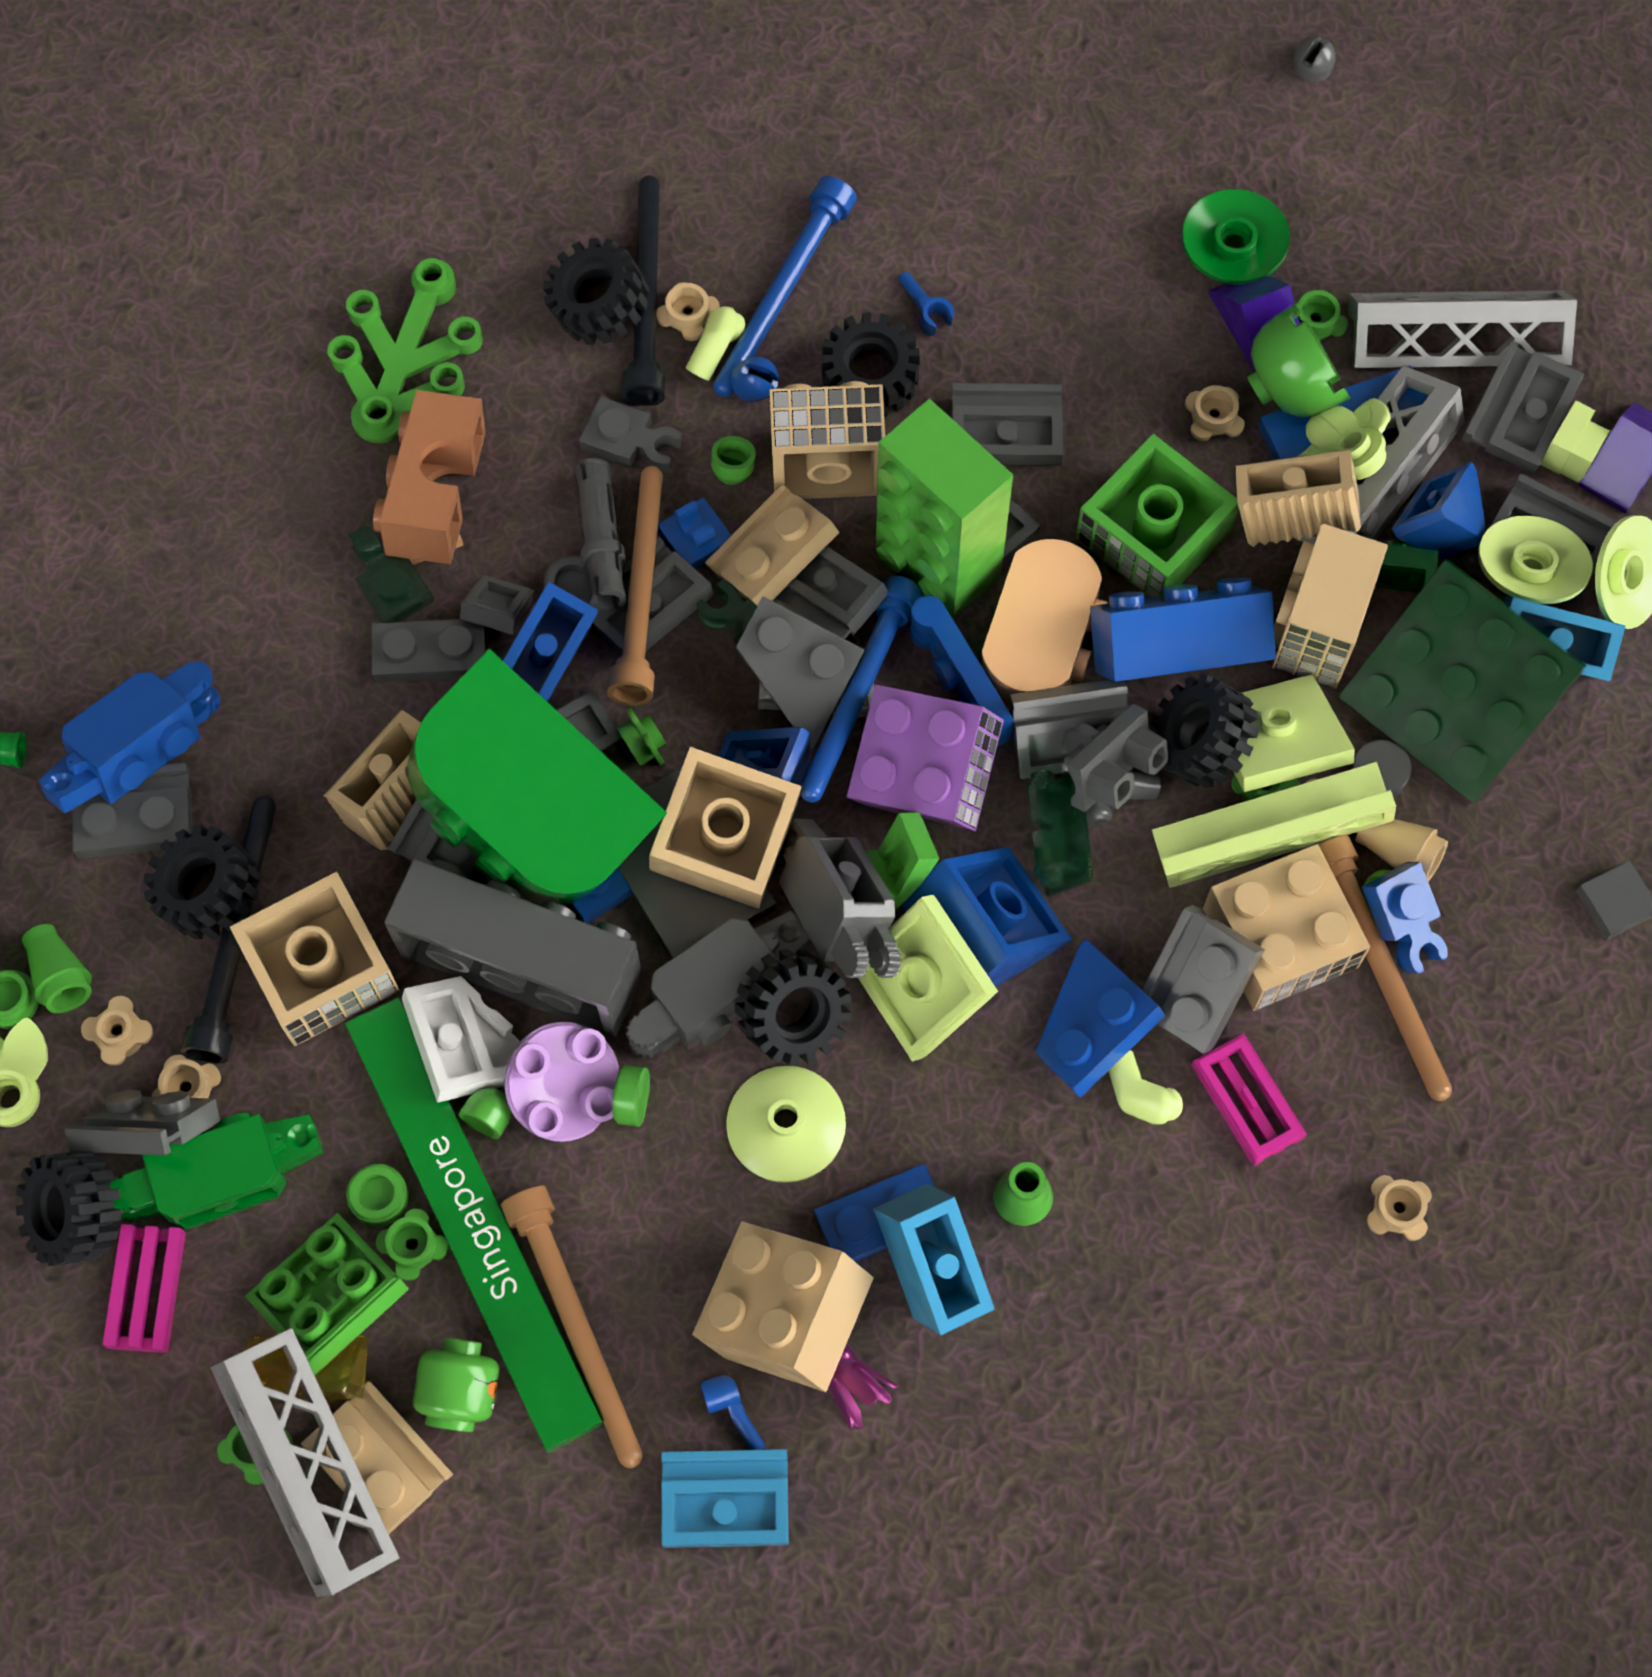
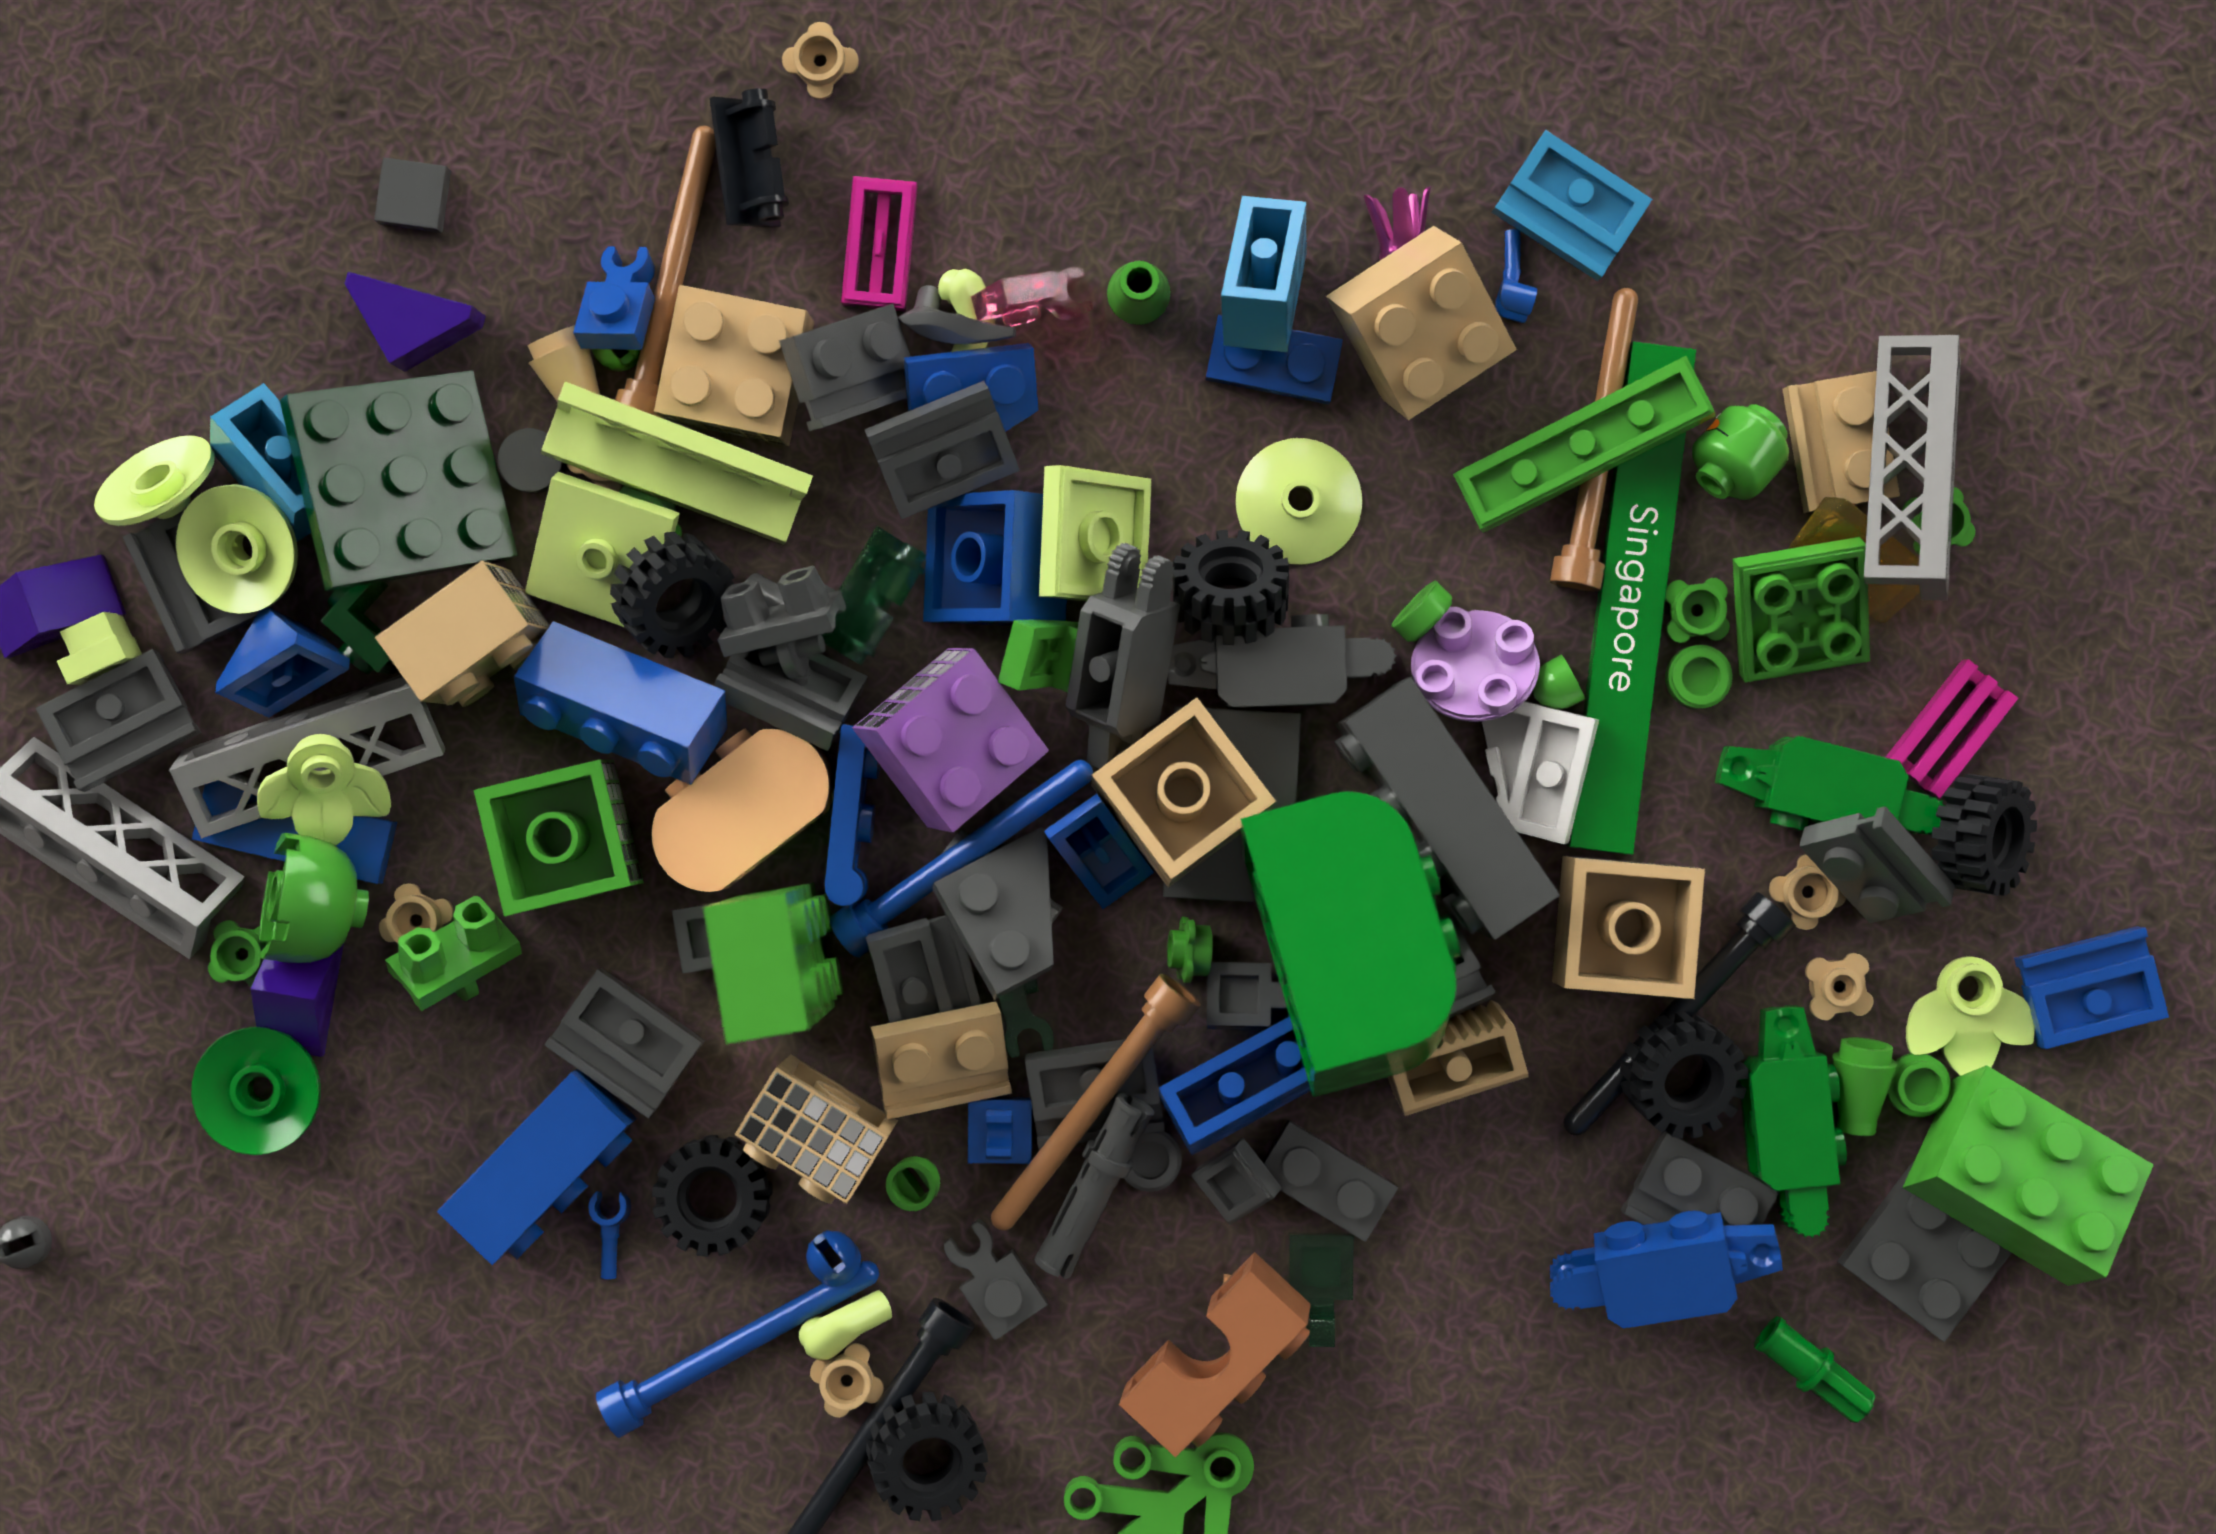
camera: 150 degrees left, 20 degrees up
(99, 906) = (1791, 1119): none -> green hinge
(586, 1308) = (1584, 444): none -> bright green tile
(1004, 305) = (539, 1168): none -> blue brick
(1084, 962) = (942, 449): none -> dark grey plate
(1108, 1119) = (1021, 297): none -> clear pink plate
(1148, 1063) = (951, 328): none -> dark grey bar
(1170, 396) = (454, 956): none -> bright green hips
(1297, 495) = (416, 753): tan brick -> none
(1394, 1087) = (747, 170): none -> black hinge
(1549, 803) = (411, 322): none -> dark purple slope

